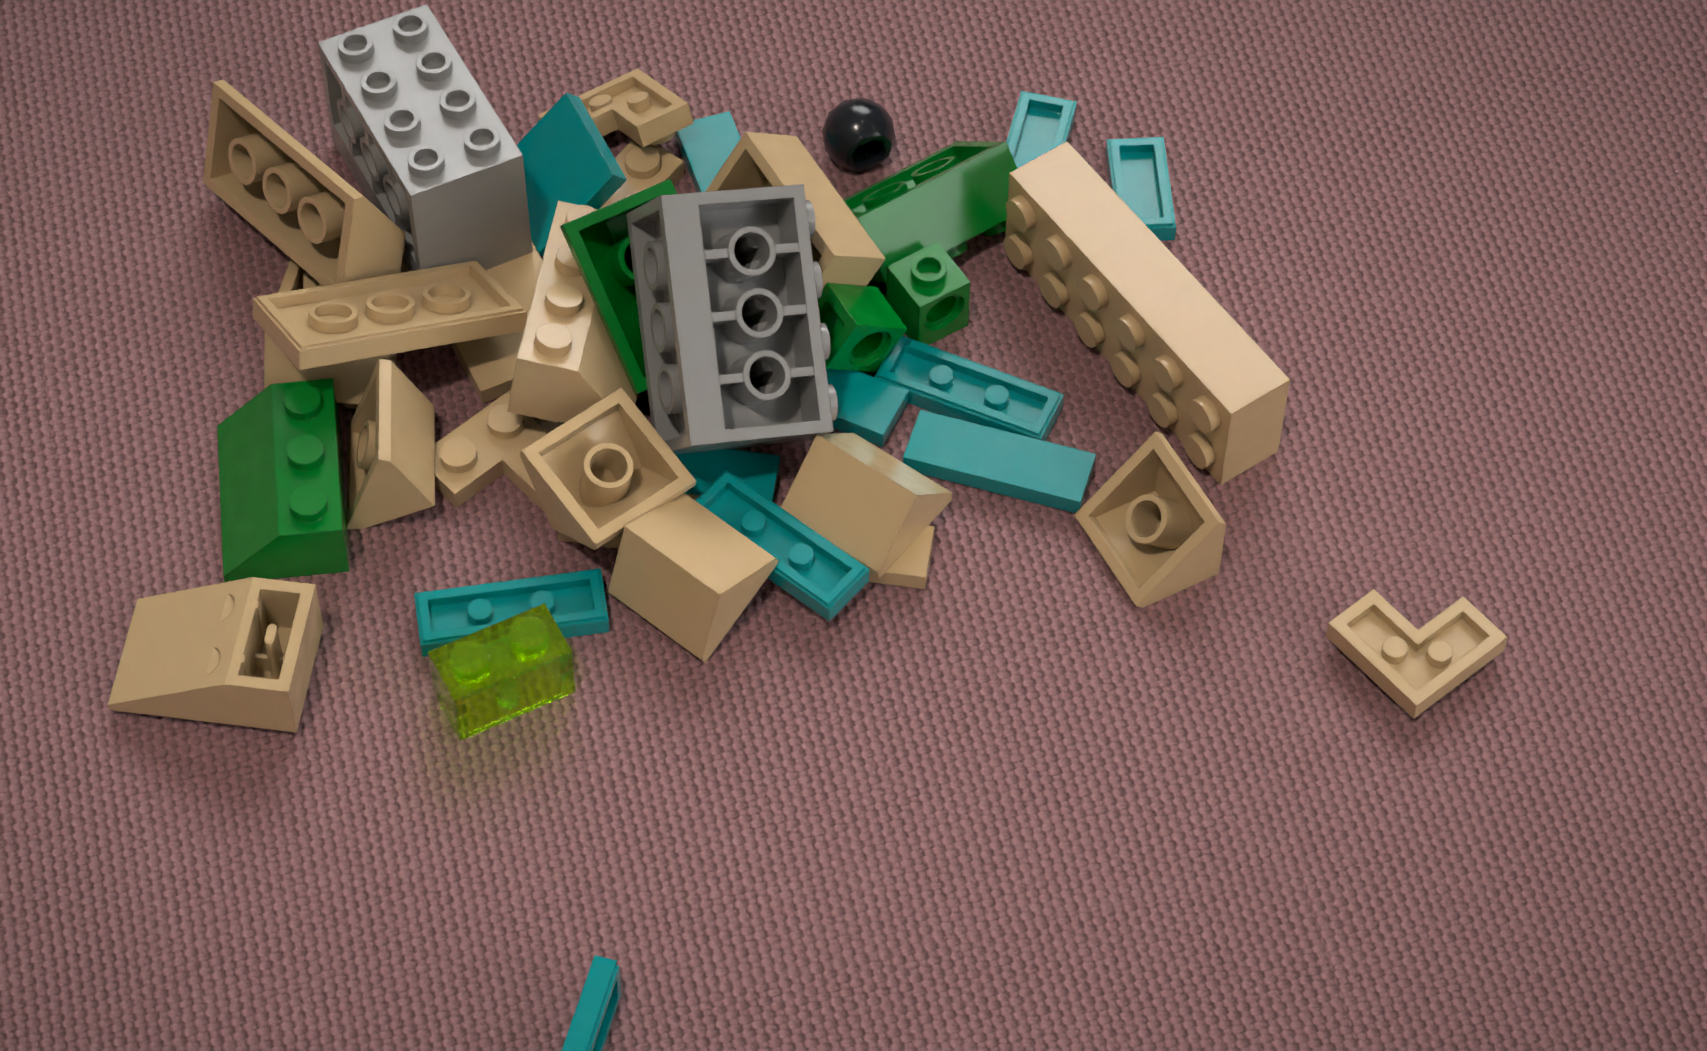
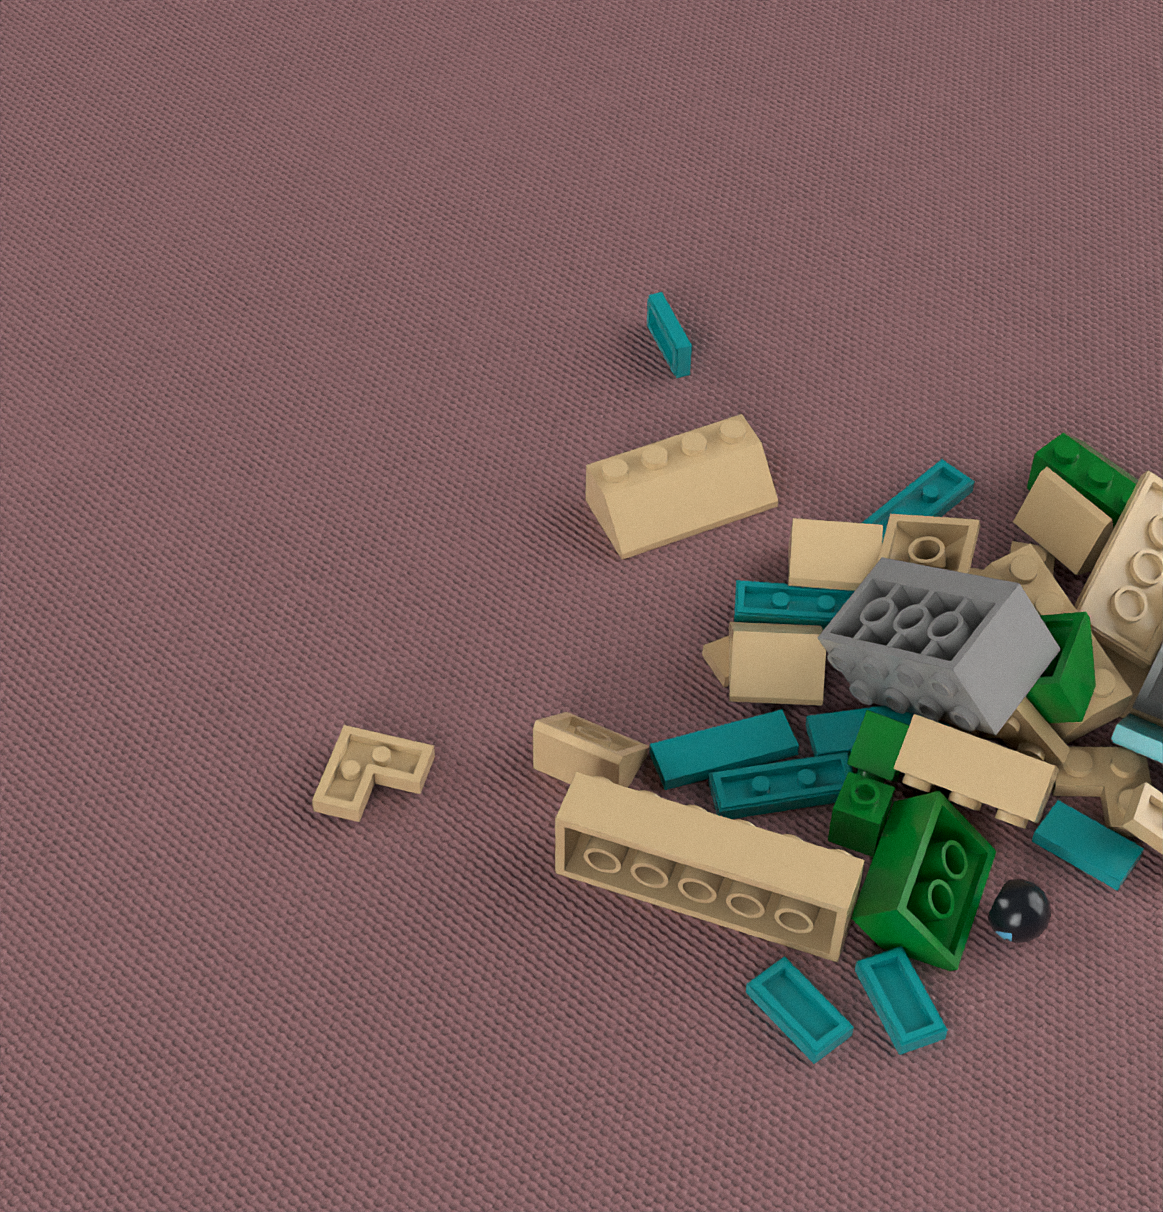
camera: 145 degrees right, 5 degrees down
(222, 654) = (1026, 390): tan slope -> none
(502, 671) = (881, 458): clear neon green brick -> none
(774, 796) = (680, 486): none -> tan slope

